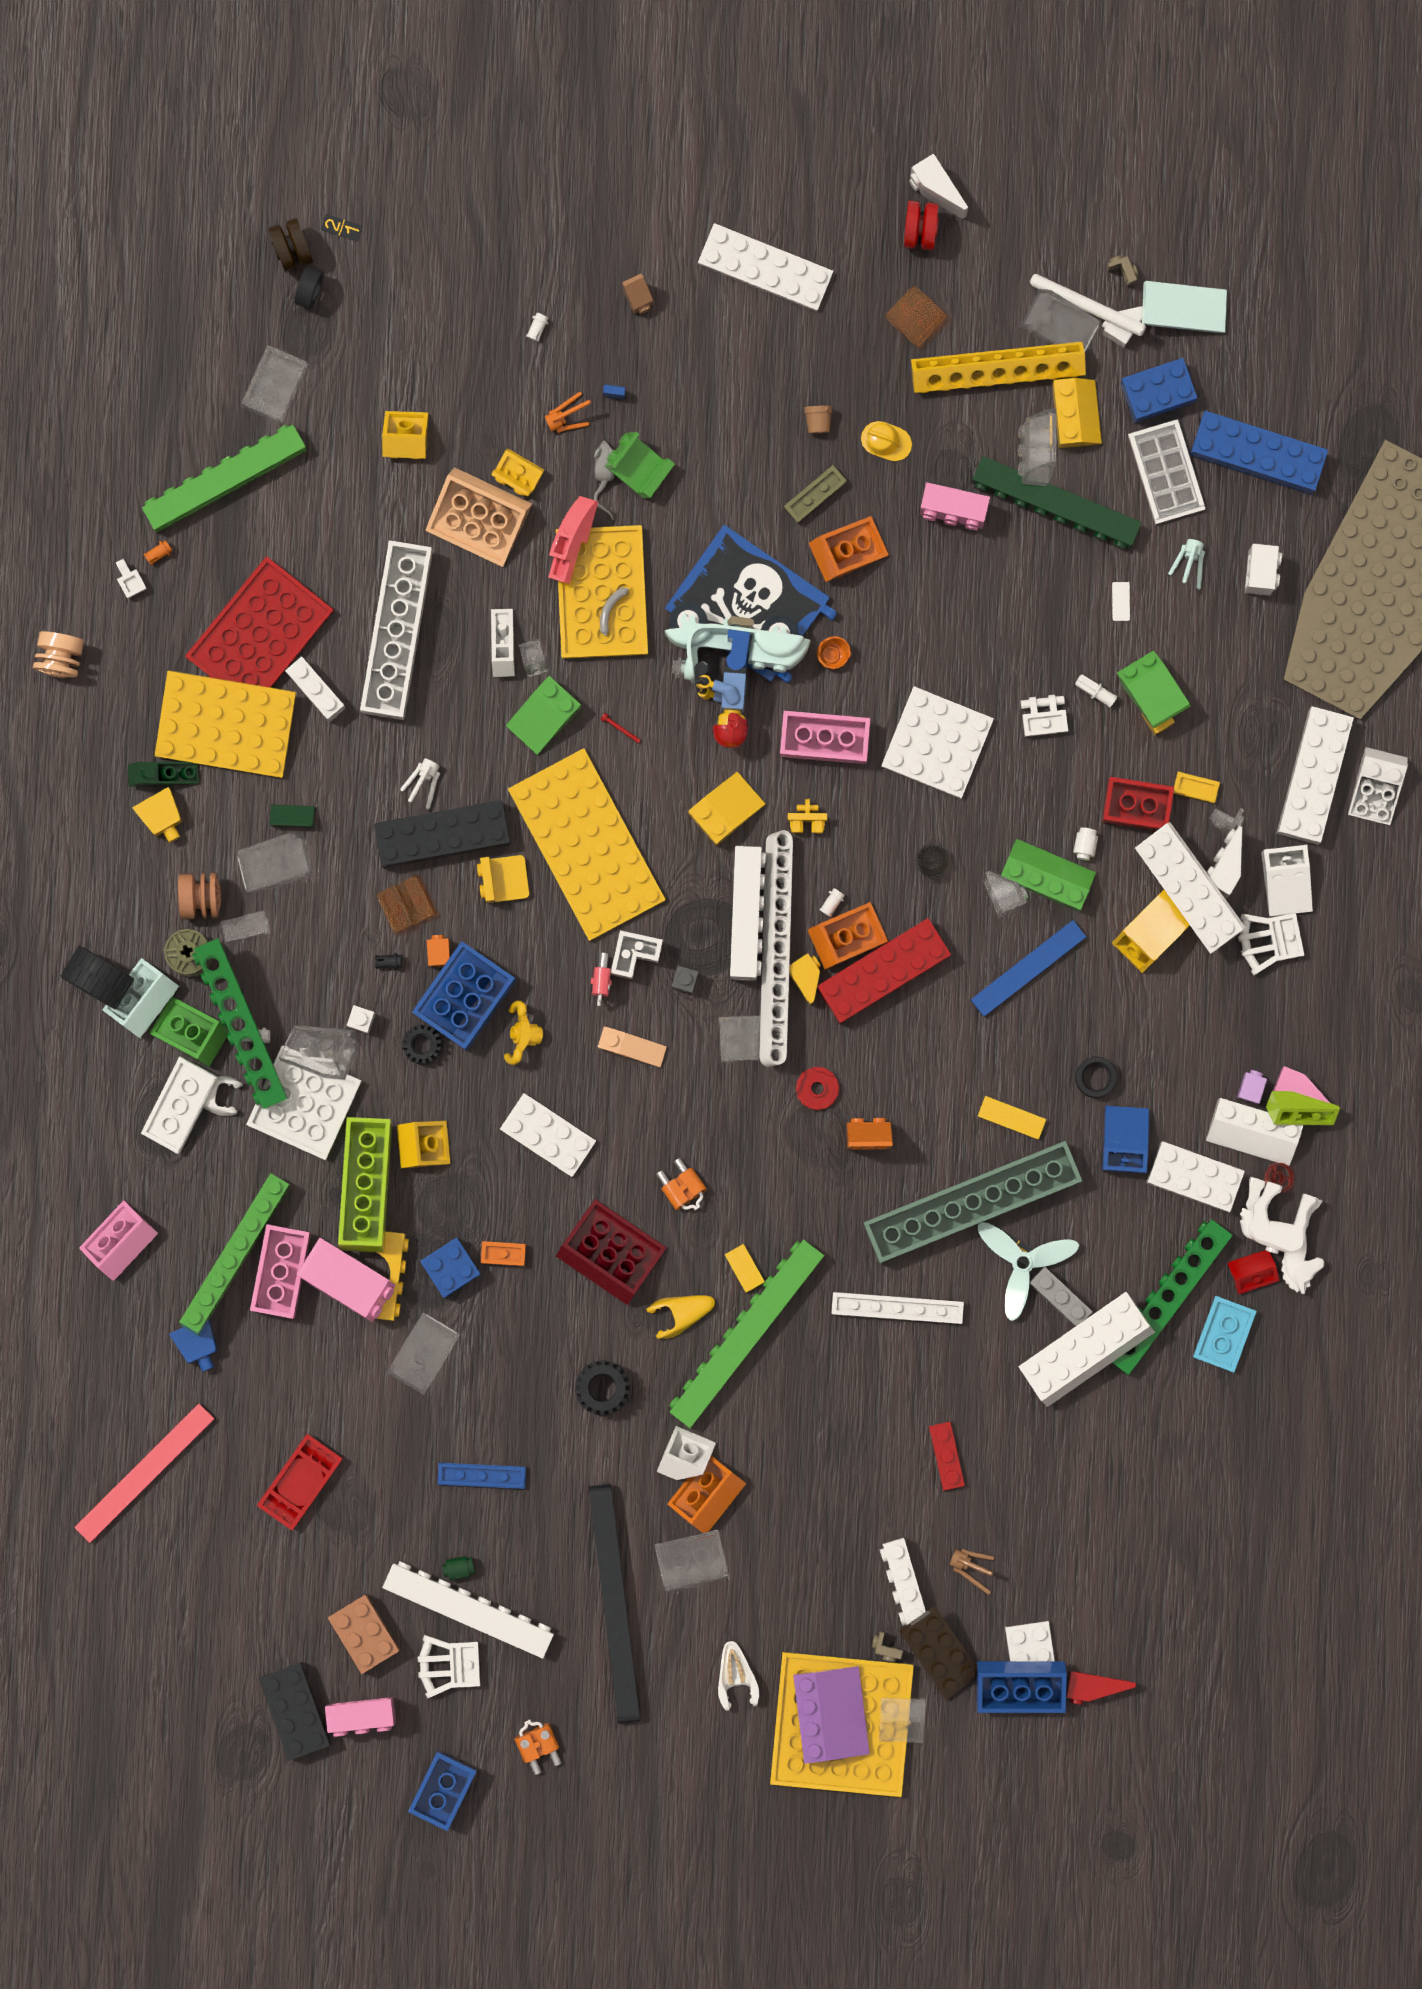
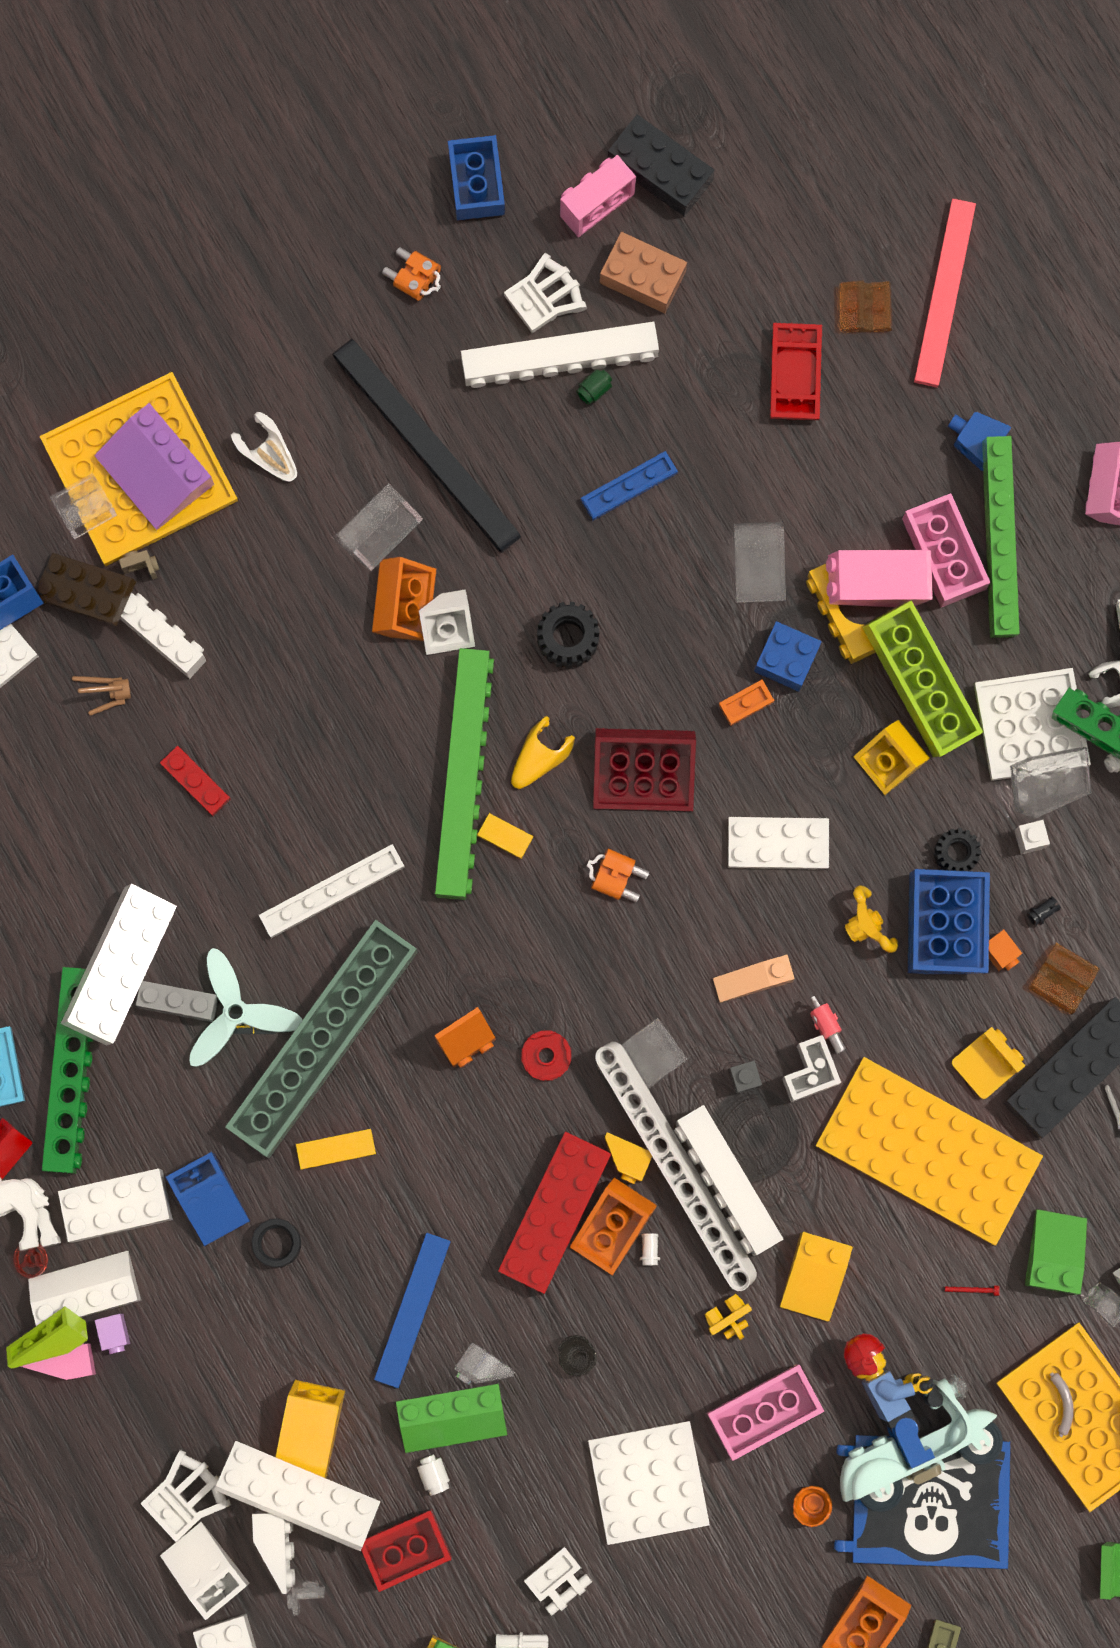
camera: 145 degrees right, 5 degrees down
(212, 1500) = (865, 306): none -> clear orange slope
(1196, 787) = (357, 1607): yellow tile -> none

